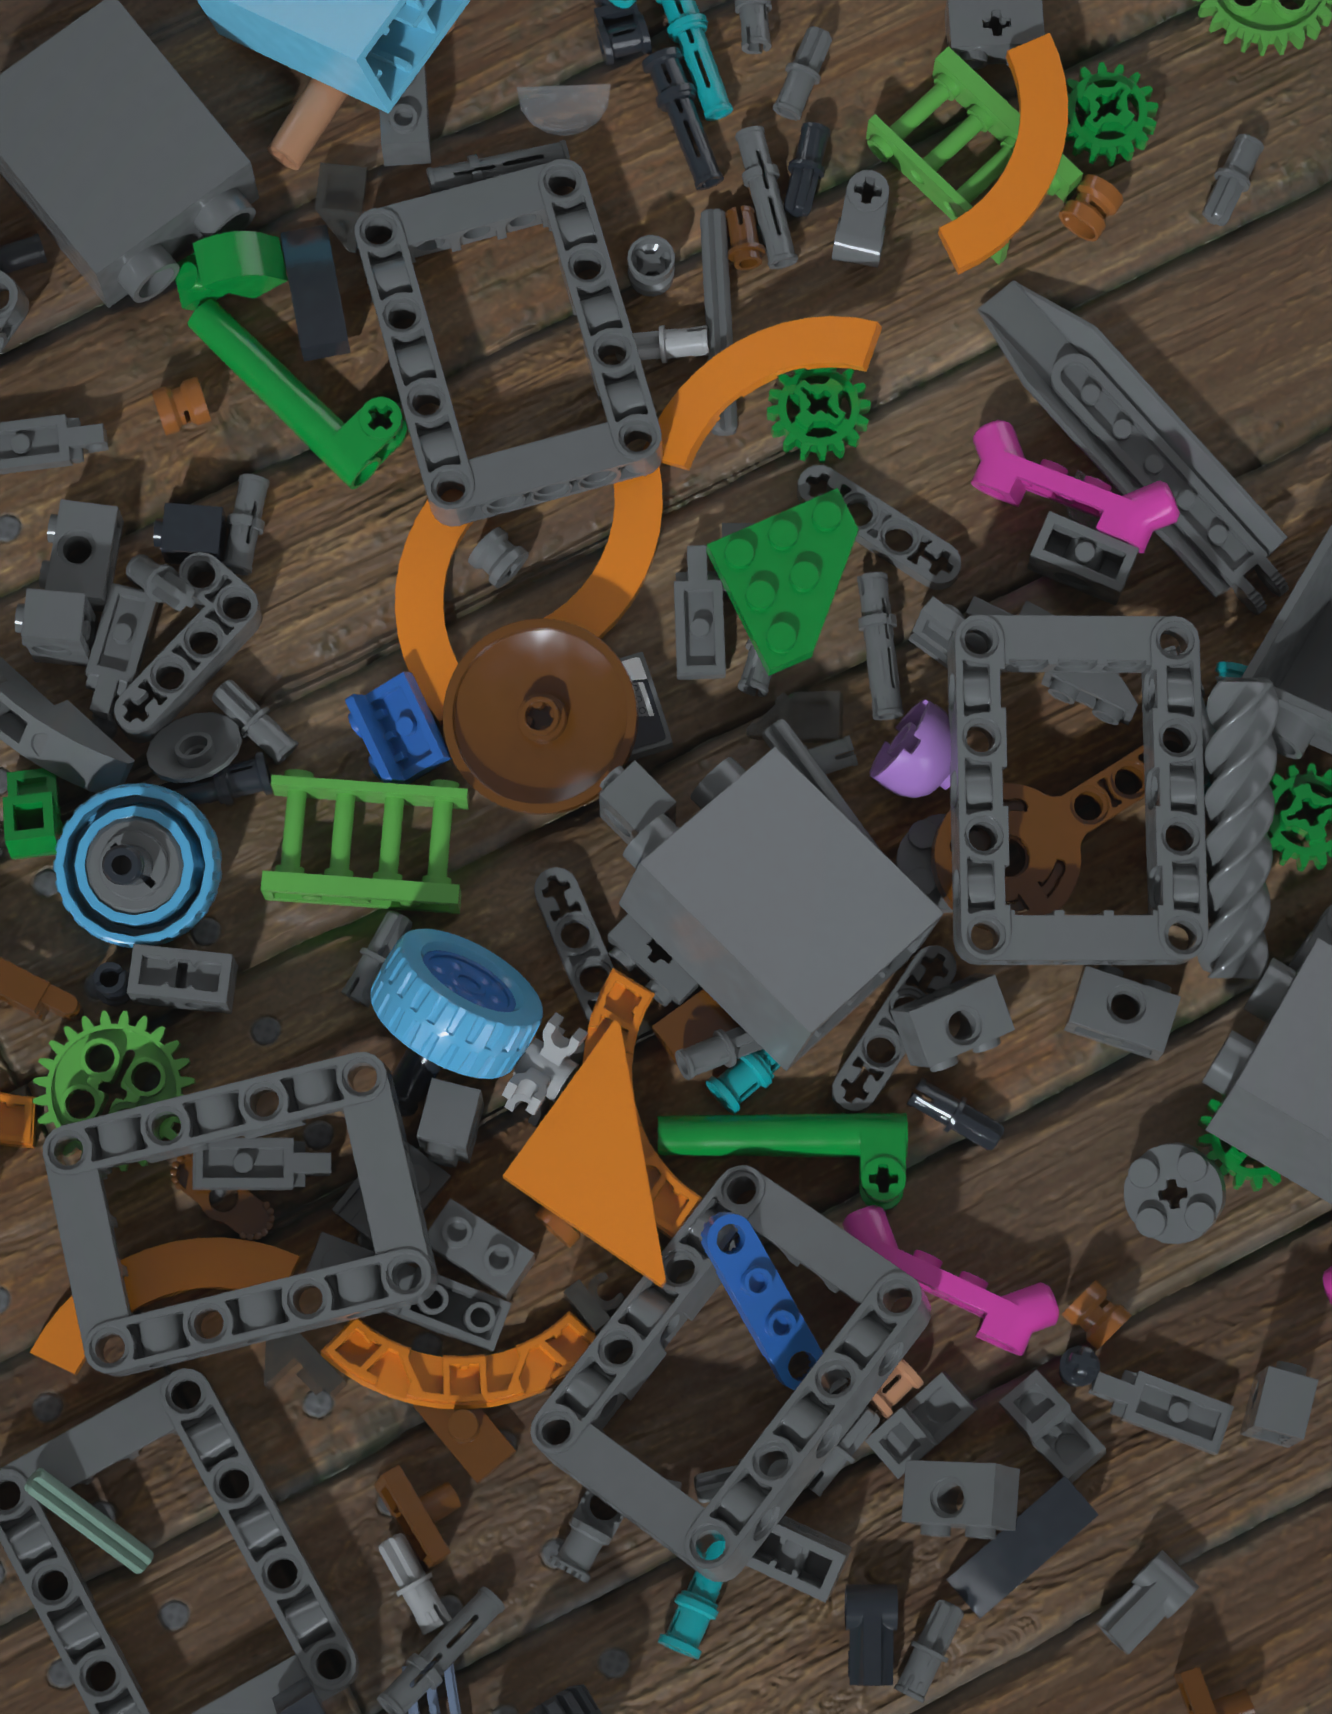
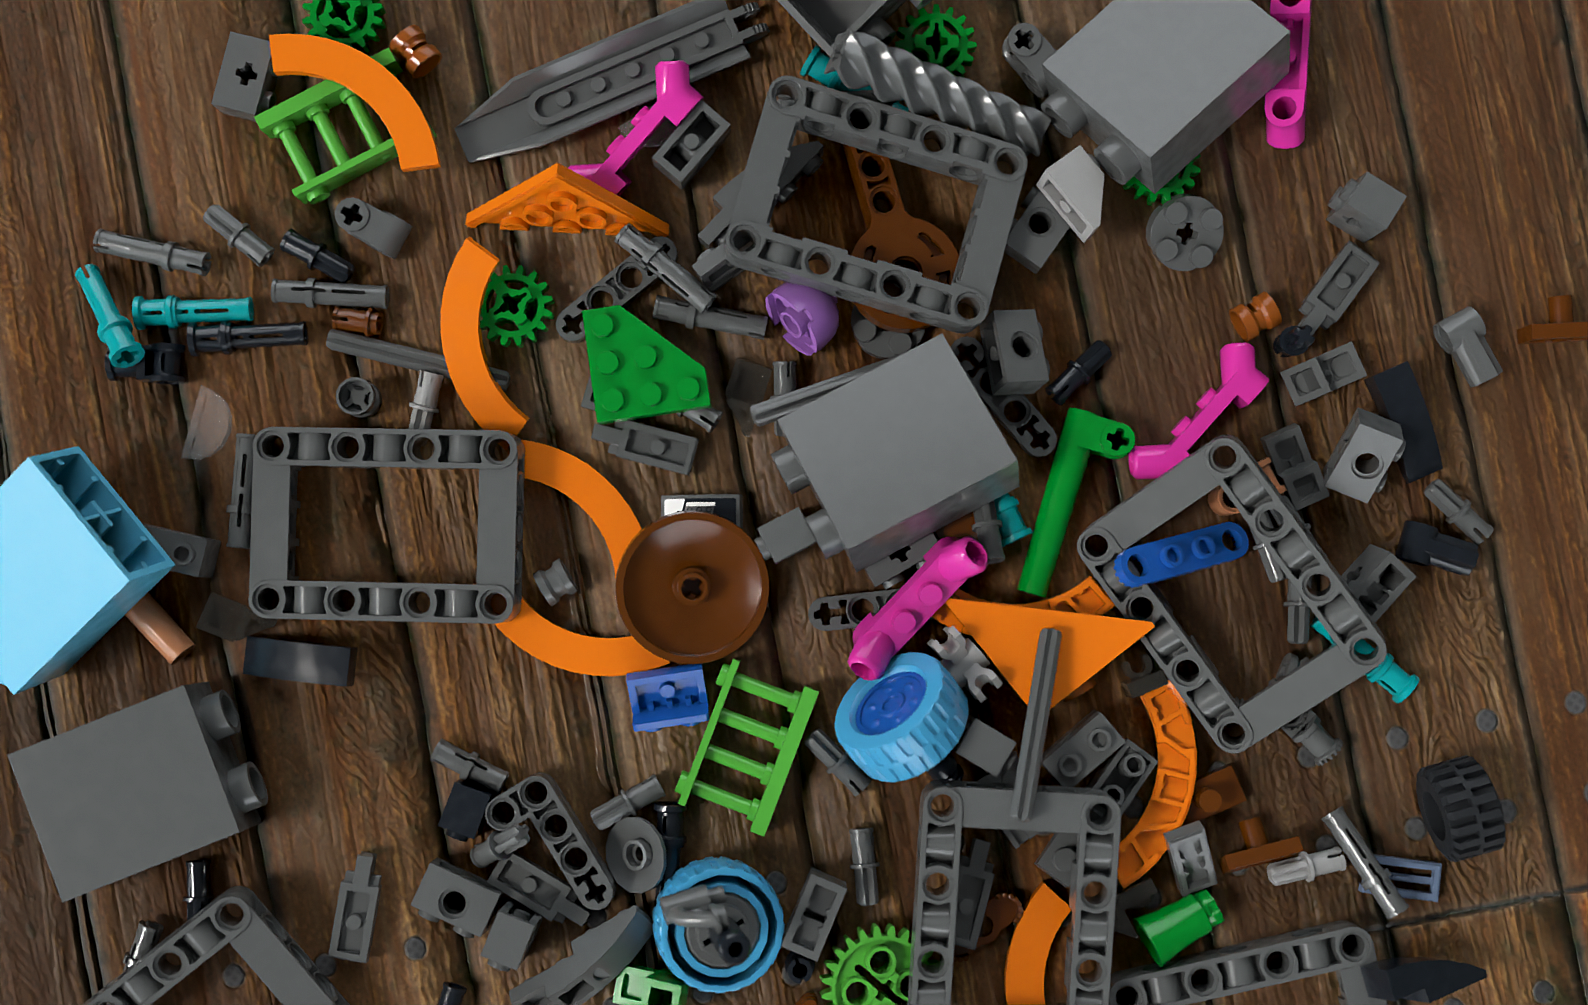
camera: 70 degrees left, 10 degrees up
(155, 816) = (696, 908): none -> dark grey plant
(181, 405) = (360, 789): dark orange wheel -> none
(233, 264) = (259, 721): green brick -> none
(259, 1028) = (864, 865): none -> dark grey axle
(294, 1437) = (1177, 925): none -> green plant
(349, 448) = (434, 671): green axle -> none
(382, 1427) = (1190, 858): none -> dark grey plate
(494, 1162) = (1035, 725): none -> dark grey axle
(598, 983) = (884, 634): none -> dark pink plate
(928, 554) = (658, 262): none -> dark grey pin
(962, 435) = (567, 204): none -> orange tile
(1178, 1028) = (1075, 191): none -> light grey slope

